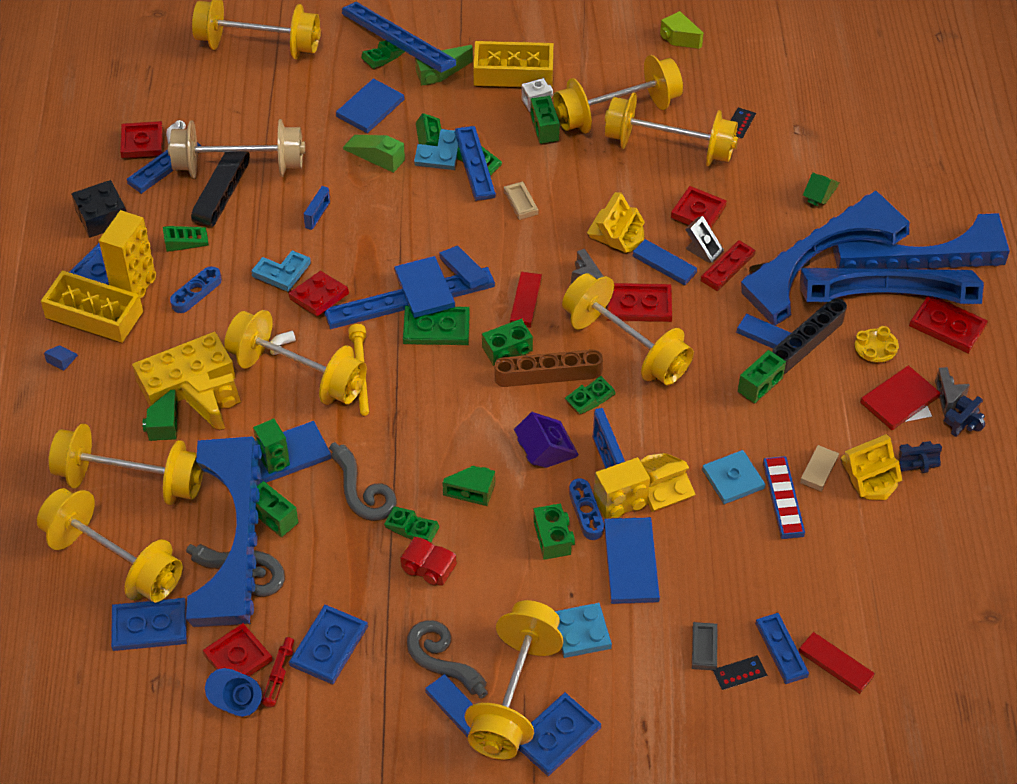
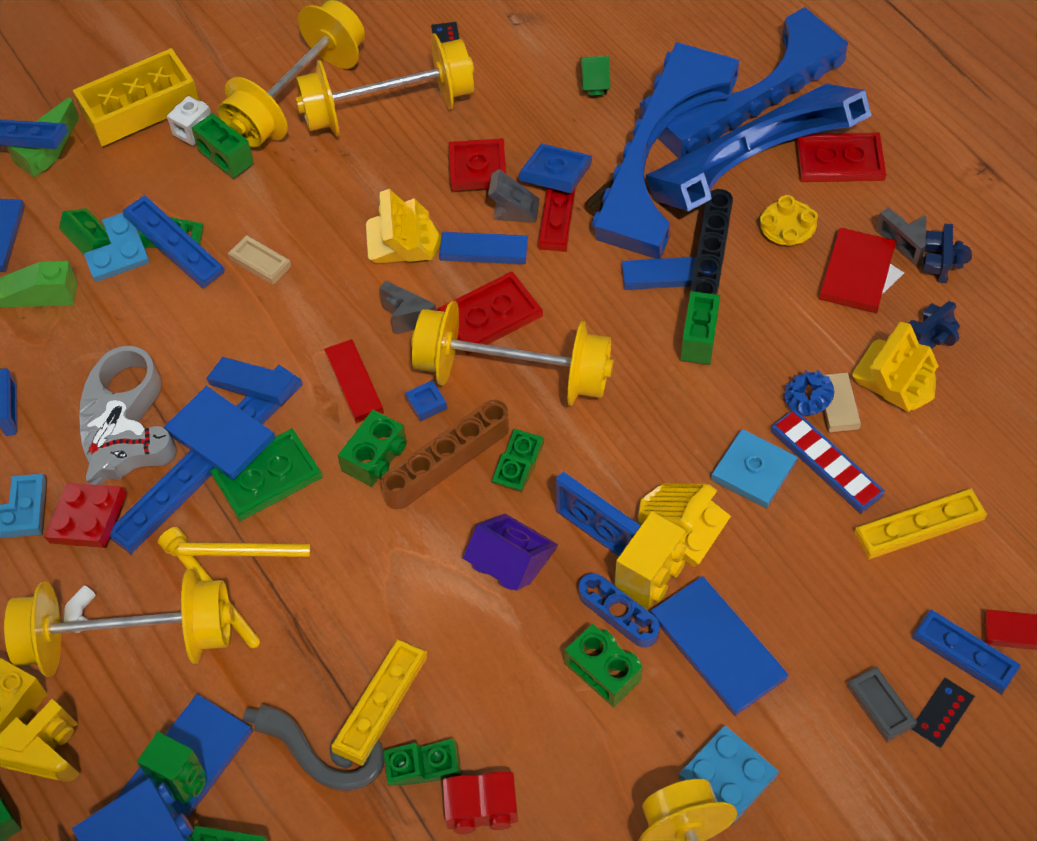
camera: 30 degrees left, 5 degrees up
(367, 248) = (110, 422): none -> light grey animal
(393, 358) = (244, 549): none -> yellow bar
(410, 479) = (379, 702): none -> yellow tile
(471, 485) = (461, 663): green slope -> none
(559, 332) = (426, 400): none -> blue plate
(747, 235) = (555, 168): none -> blue tile
(805, 457) = (821, 395): none -> blue gear
(814, 564) = (920, 523): none -> yellow tile

